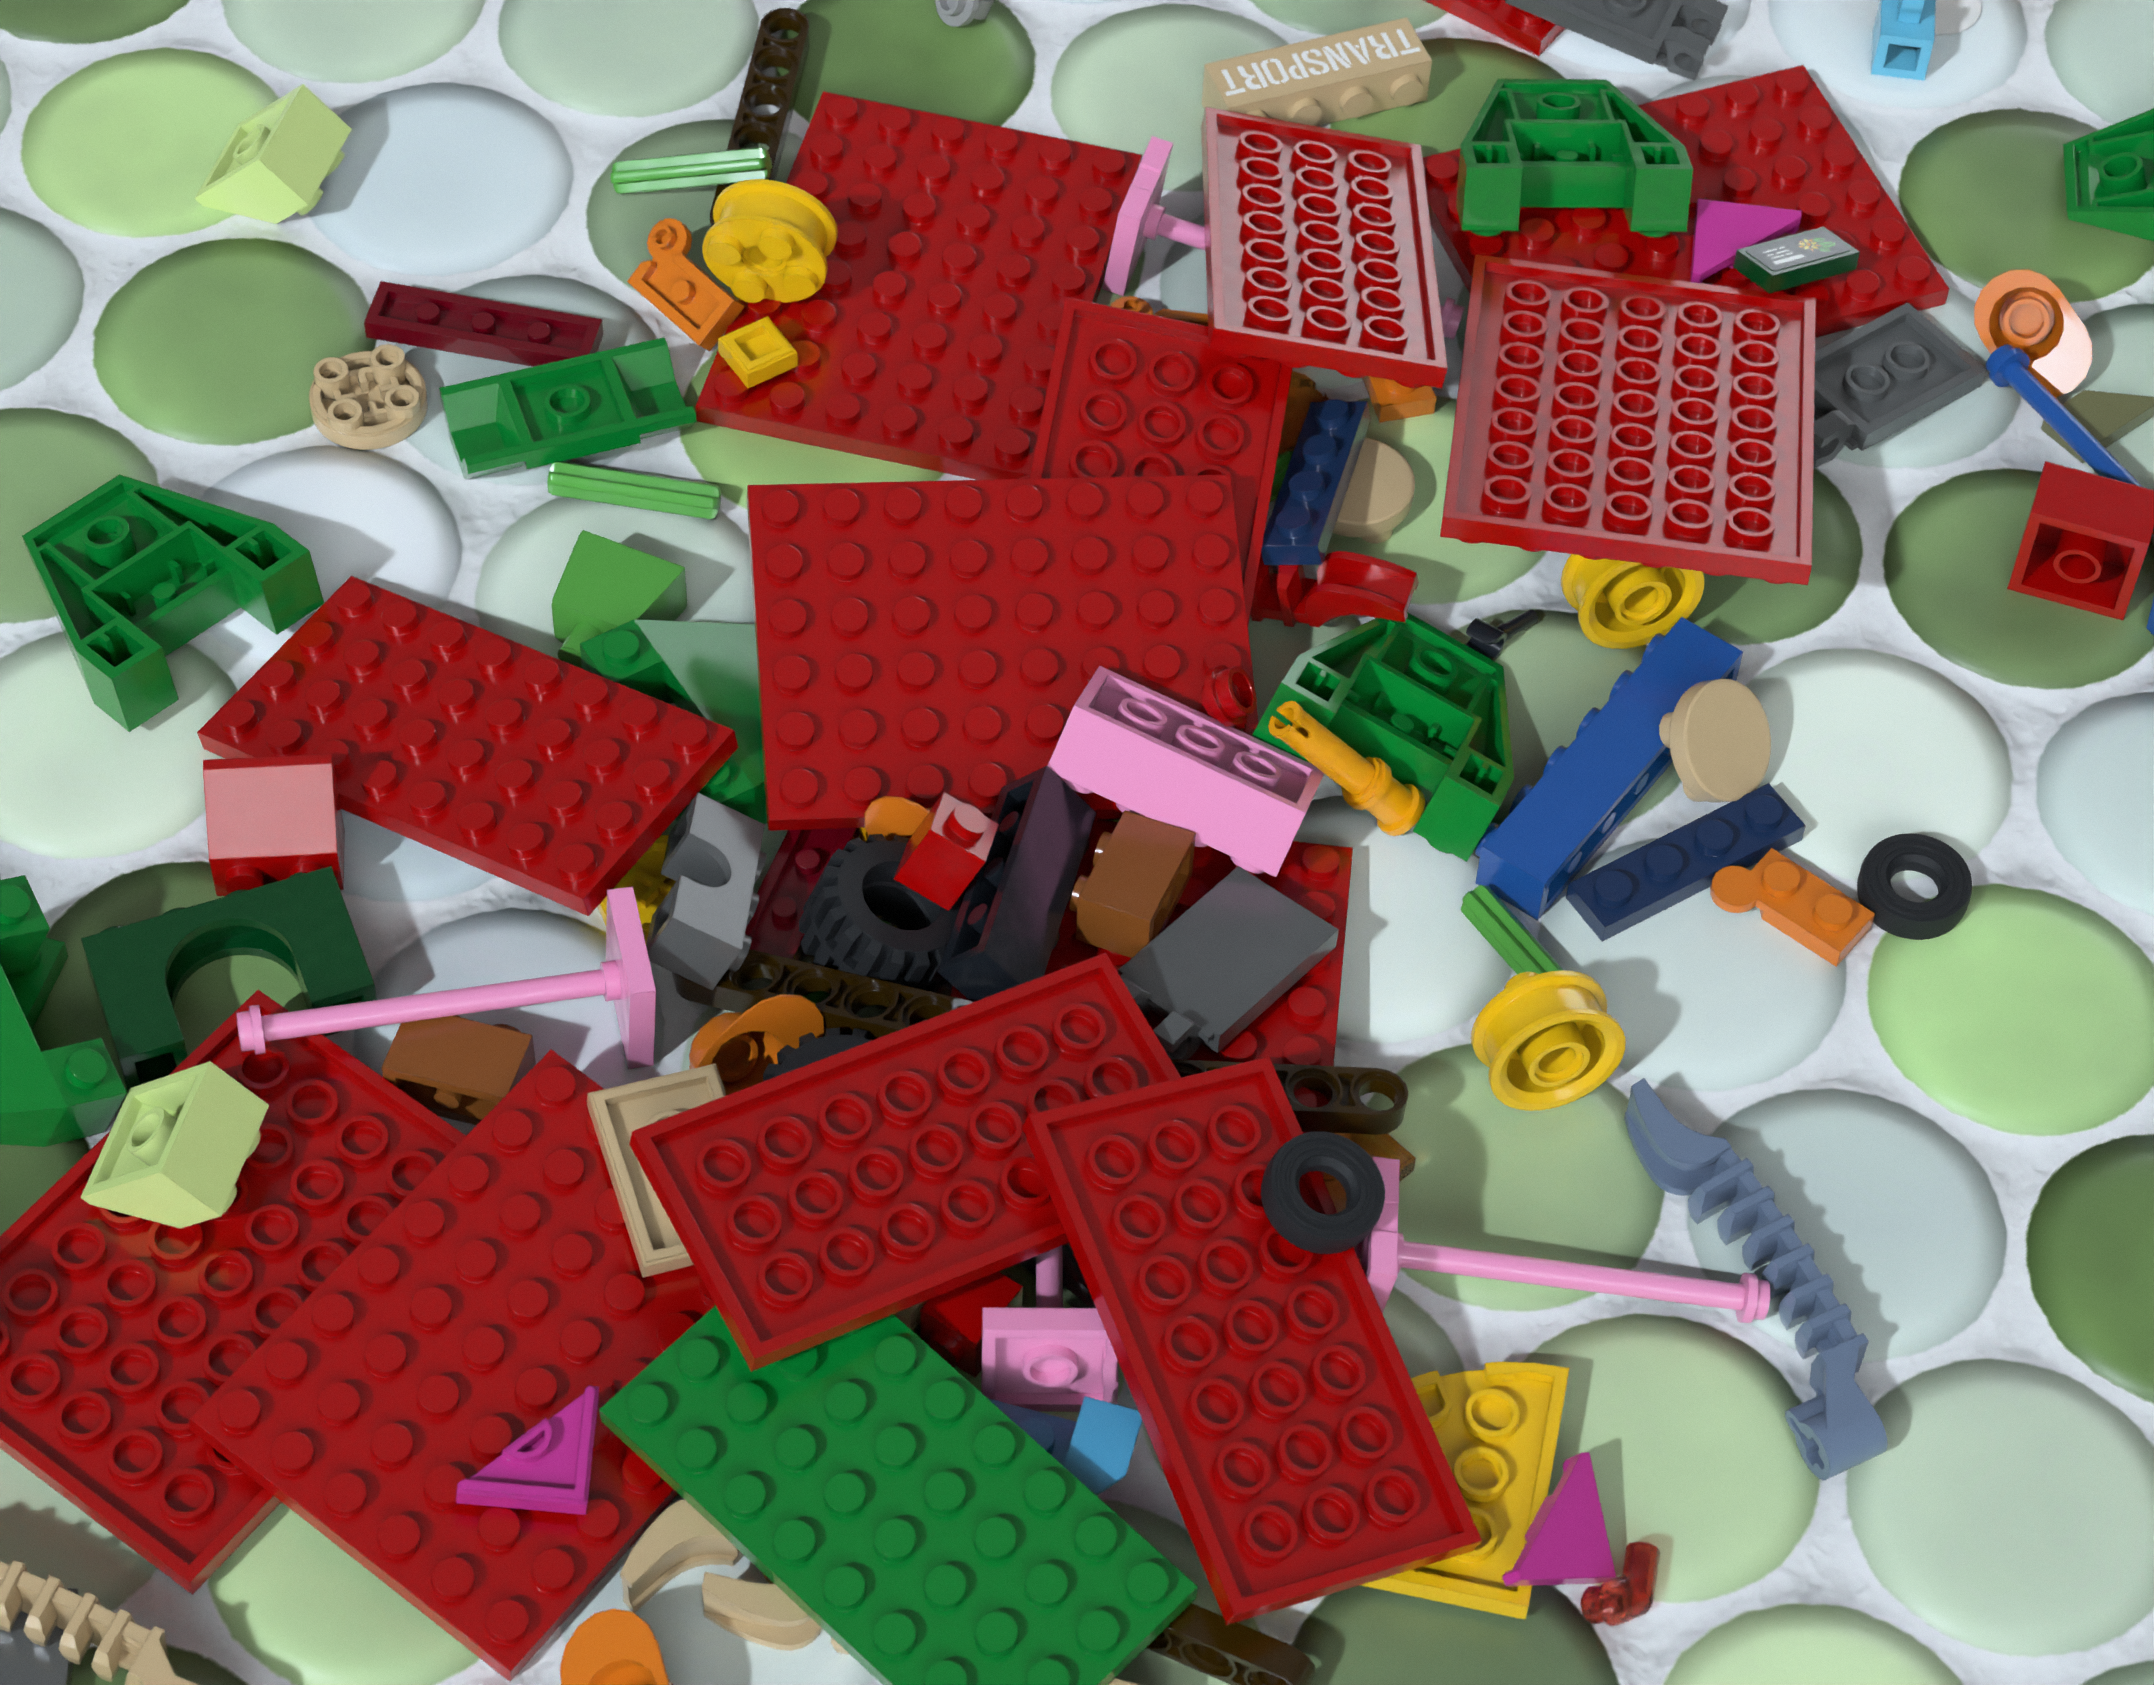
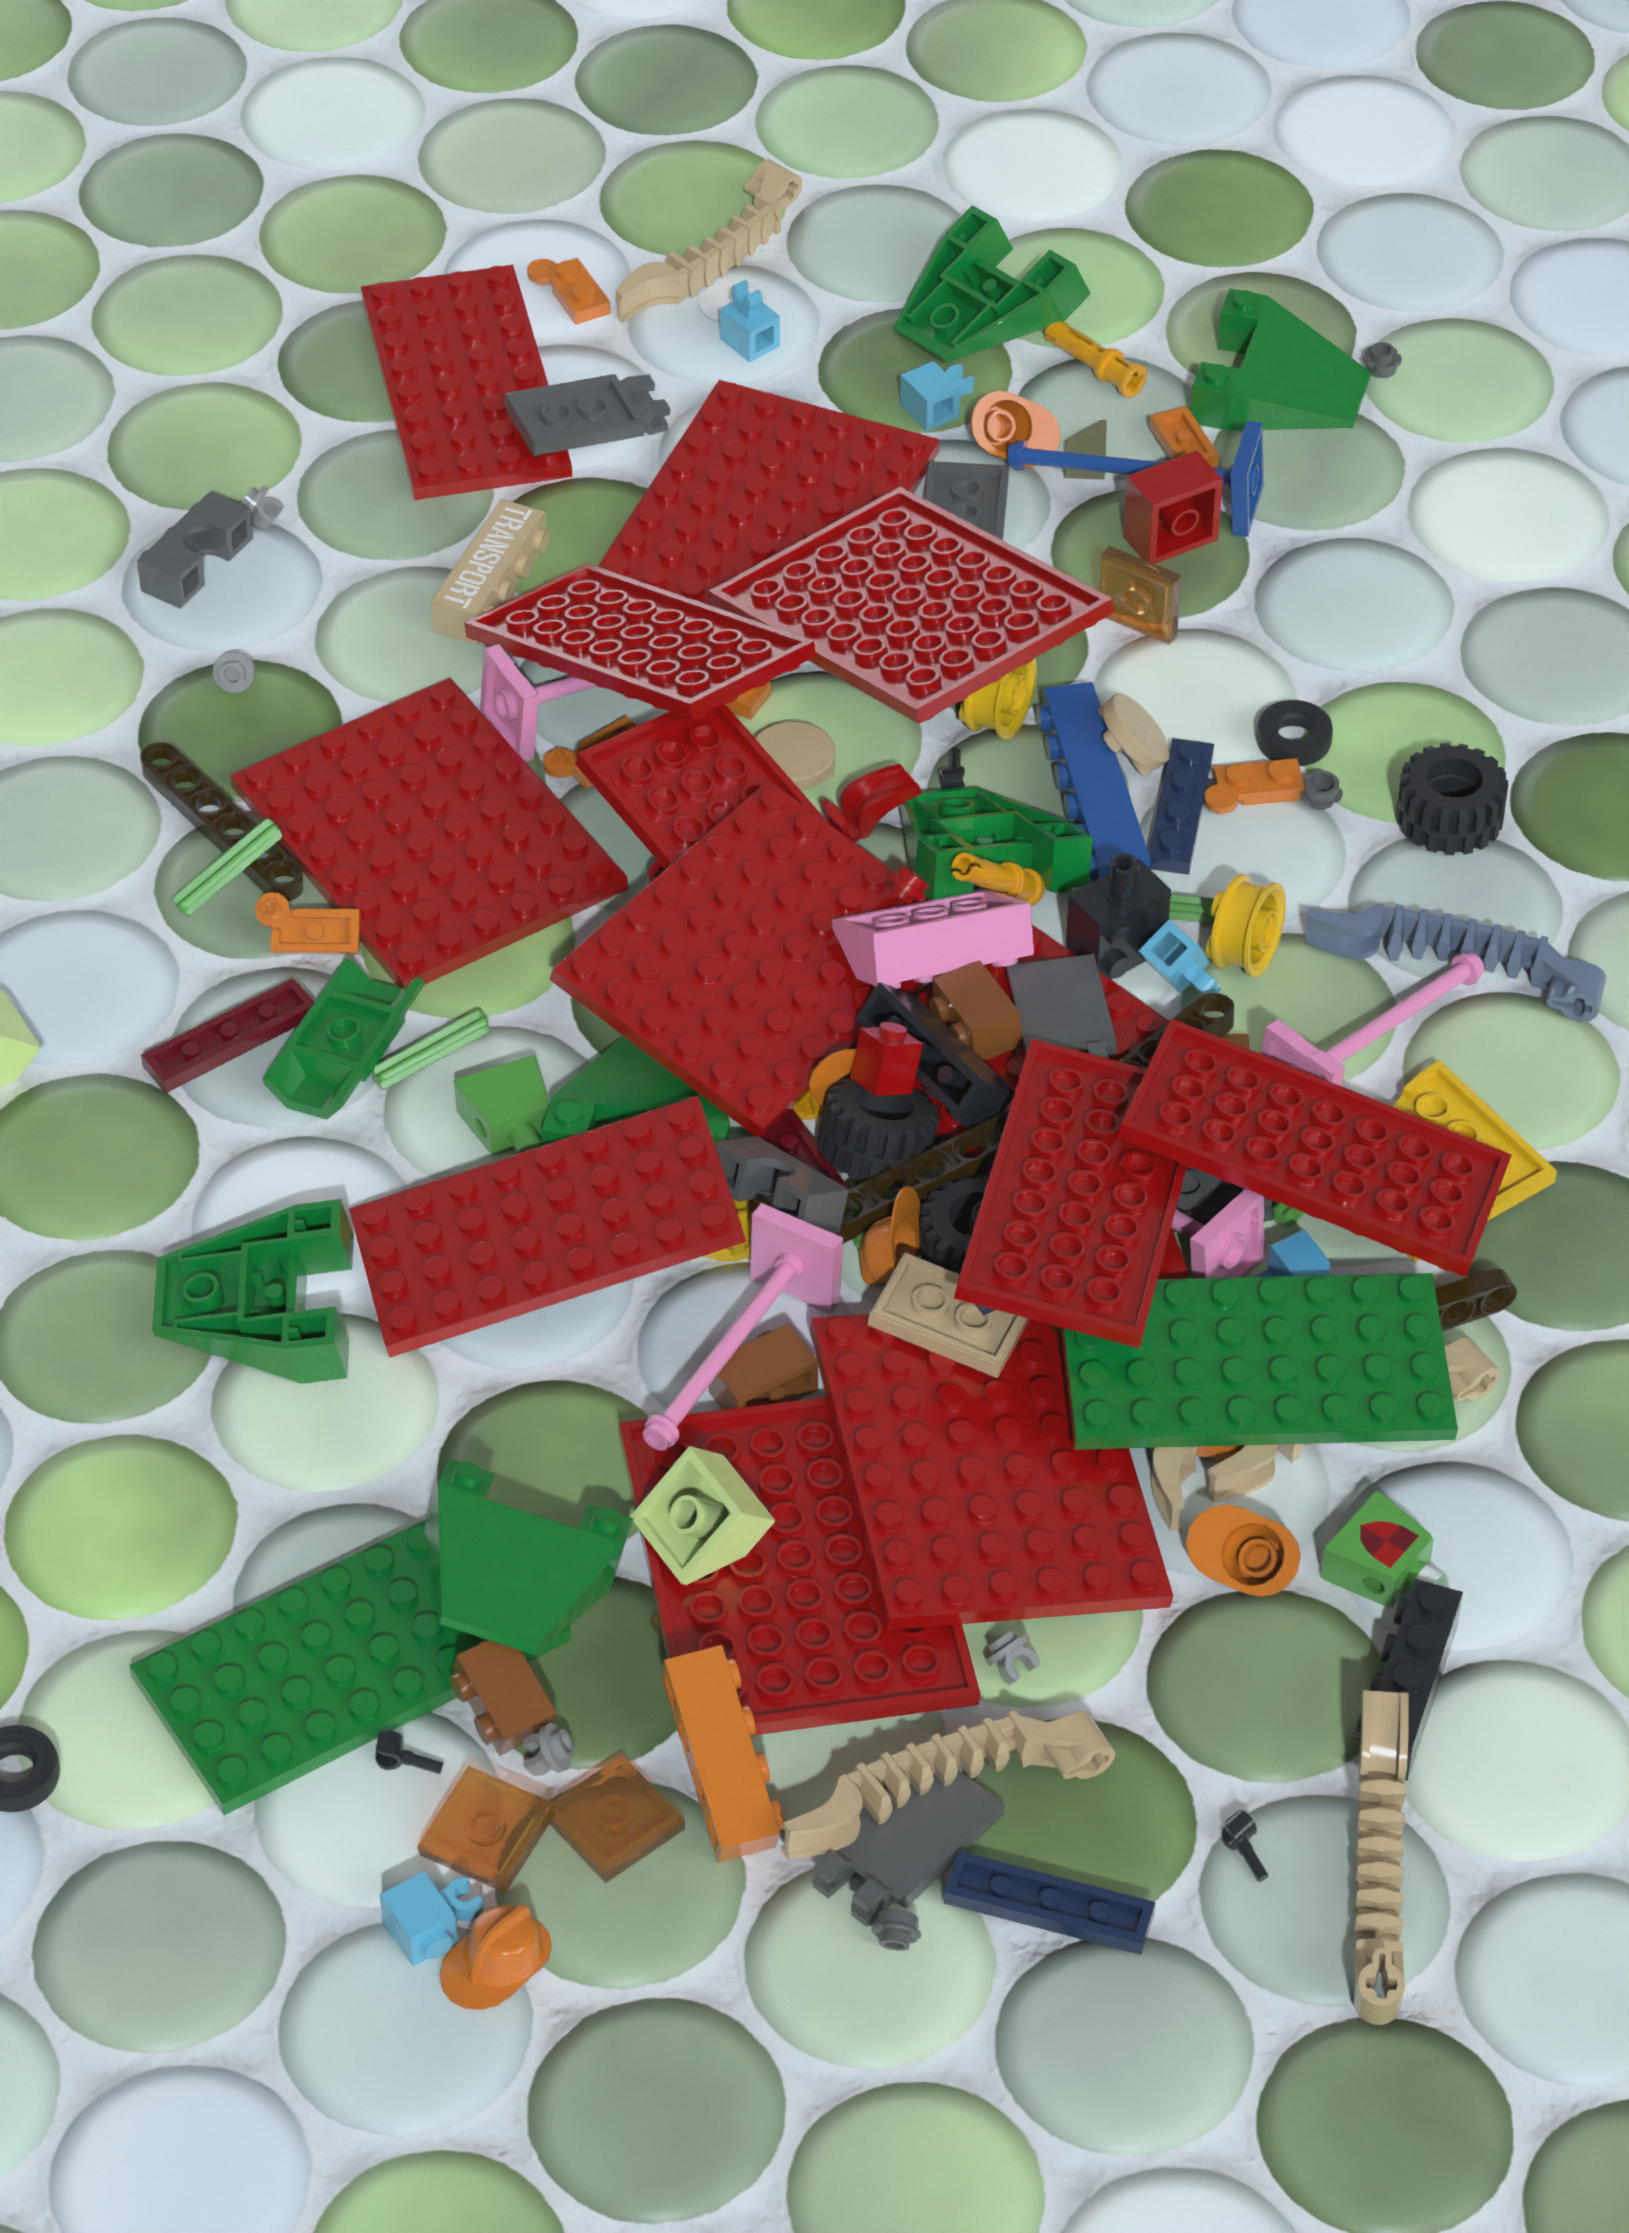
camera: 45 degrees left, 5 degrees down
(146, 963) = (580, 1385): dark green arch -> none
(272, 819) = (510, 1346): slope -> none
(282, 1564) = (1008, 1649): none -> light grey plate
(368, 398) = (215, 1121): tan tile -> none
(544, 1466) = (1075, 1490): dark pink tile -> none
(757, 352) = (406, 926): yellow tile -> none
(769, 241) = (354, 857): yellow wheel -> none
(1298, 1221) = (1268, 1073): black tyre -> none
(1315, 483) = (807, 772): dark blue plate -> none
(1418, 917) = (1117, 915): none -> black brick
(1434, 1014) = (1178, 960): none -> medium azure brick
(1567, 1535) = (1529, 1124): dark pink tile -> none
(1570, 149) = (675, 503): green wedge -> none
(1626, 1595) = (1582, 1129): clear red arm -> none
(1729, 226) = (810, 488): dark pink tile -> none
(1796, 259) = (864, 475): tile -> none
(1858, 958) = (1321, 790): none -> dark grey plate
(1919, 602) = (1142, 594): none -> clear orange tile
(1987, 1058) = (1452, 799): none -> black tyre
(2002, 237) = (933, 394): none -> medium azure brick

